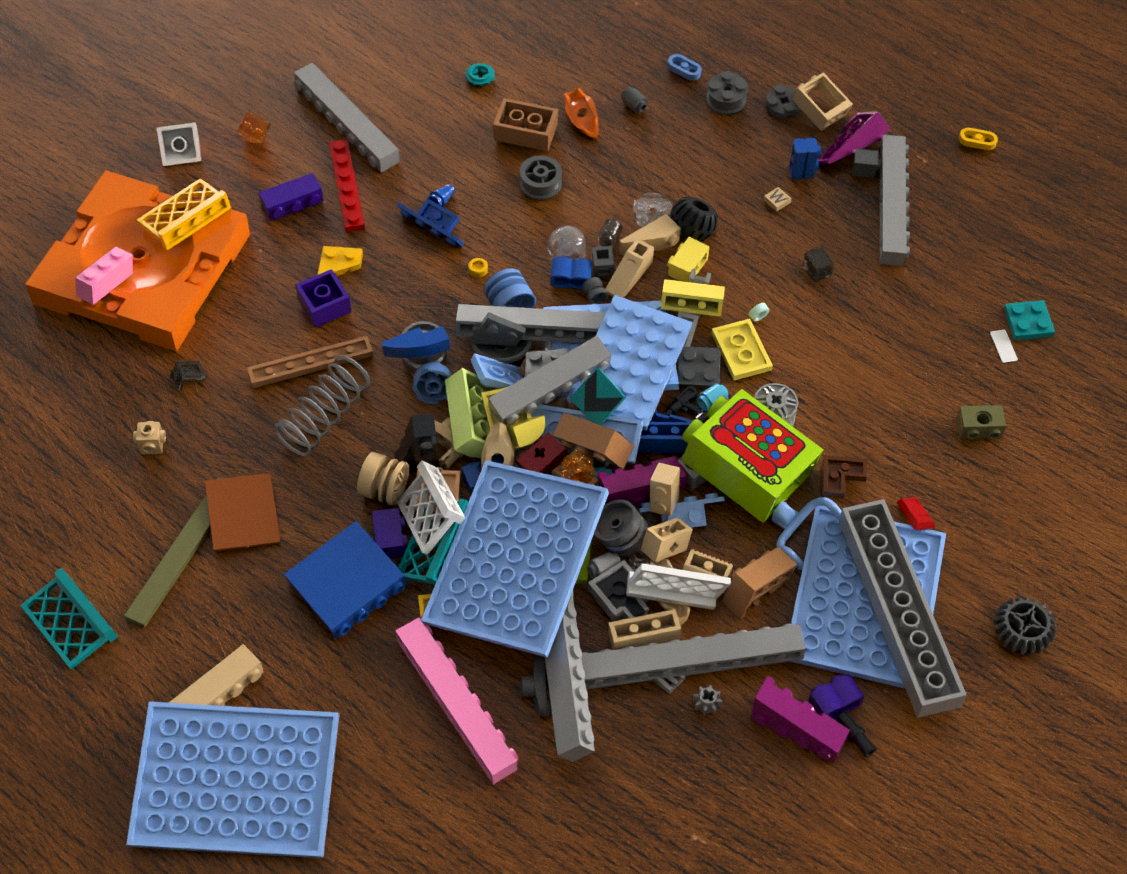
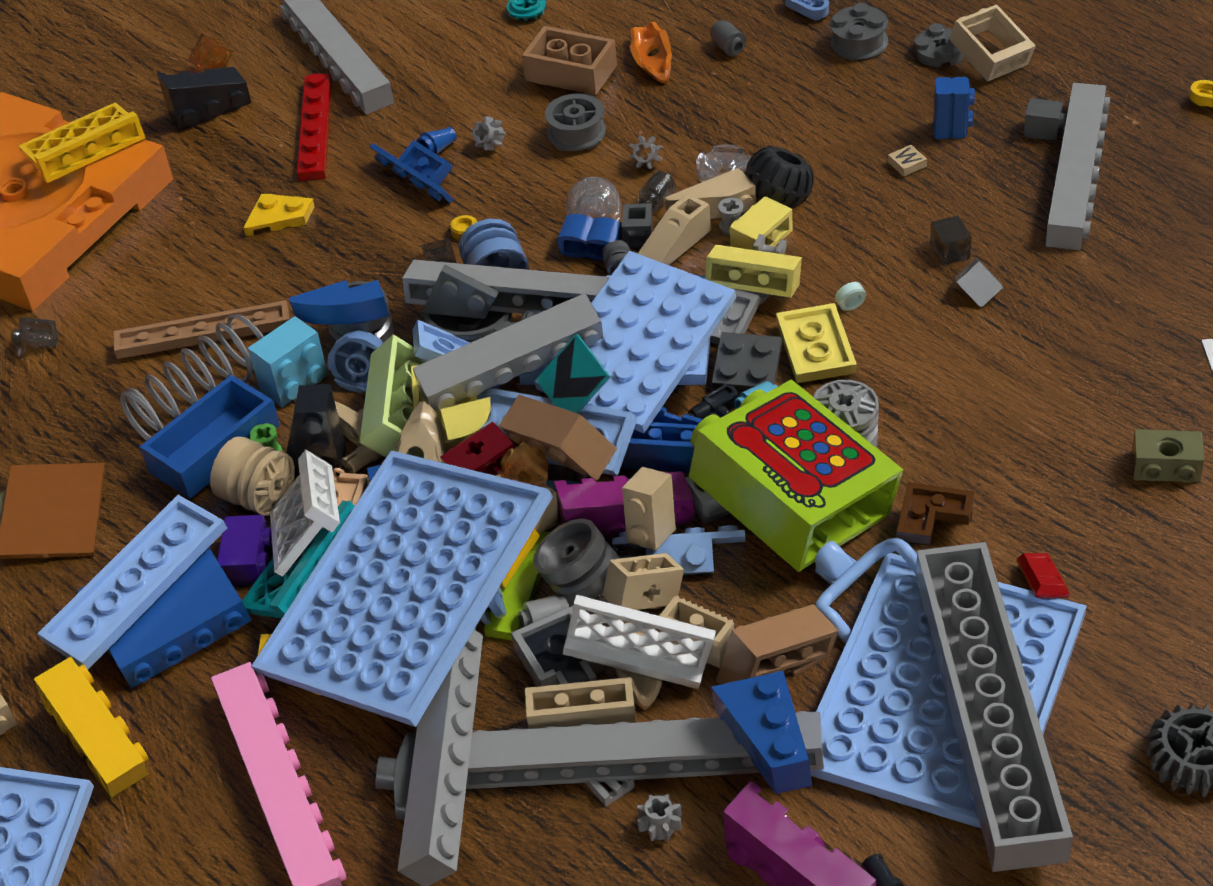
camera: 15 degrees right, 10 degrees down
(179, 144) = (111, 70): white slope -> none
(257, 163) = (203, 95): none -> black wedge
(291, 196) = (236, 135): dark purple brick -> none
(322, 672) = (91, 726): none -> yellow wedge
(323, 298) = (240, 251): dark purple brick -> none
(325, 567) = (132, 581): none -> light blue plate
(343, 449) = (188, 445): none -> blue piece
(382, 446) = (266, 435): none -> bright green bush
(384, 387) = (288, 359): none -> medium azure brick
(467, 292) = (439, 251): none -> clear smoke bracket
(475, 193) = (488, 133): none -> light grey gear
(593, 205) = (640, 148): none -> light grey gear
(666, 248) = (730, 211): none -> light grey bush
(773, 640) = (767, 727): none -> blue wedge
(837, 697) = (867, 830): dark purple brick -> none
(841, 296) = (978, 282): none -> light grey panel
(858, 133) = (1044, 81): magenta wedge -> none

